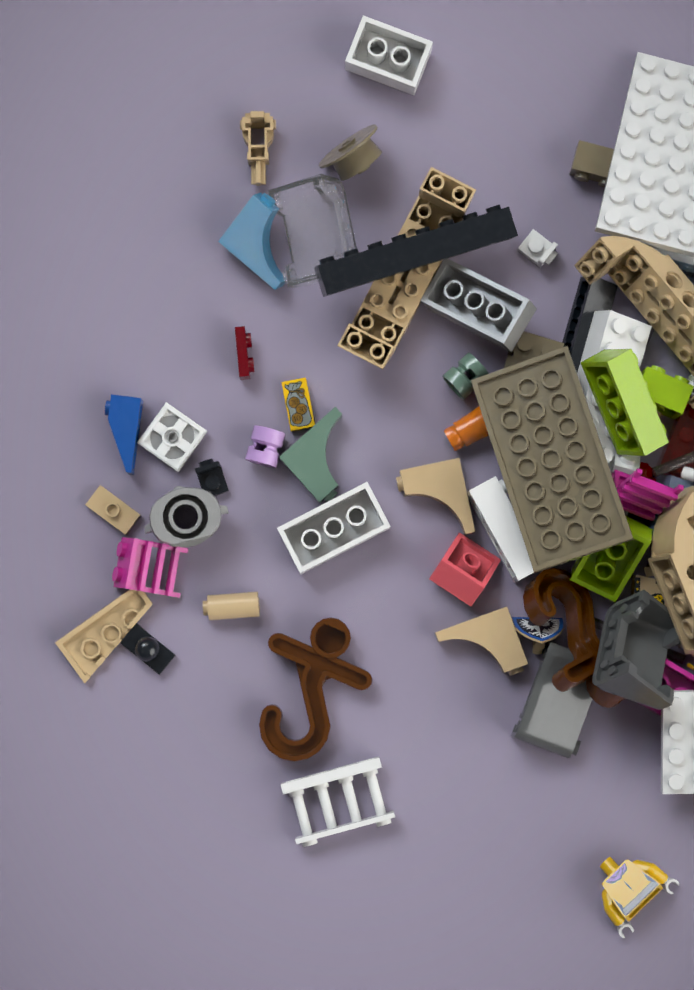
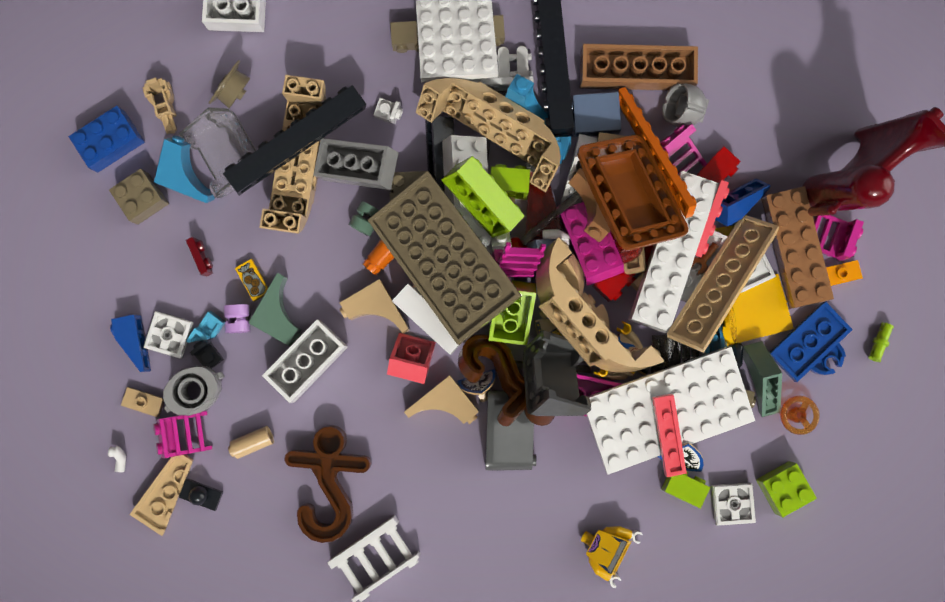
camera: 15 degrees left, 0 degrees up
(63, 570) = (120, 457): none -> white arm
(175, 166) = (106, 139): none -> blue brick
(192, 252) = (138, 196): none -> dark tan brick
(222, 446) = (207, 329): none -> medium azure slope

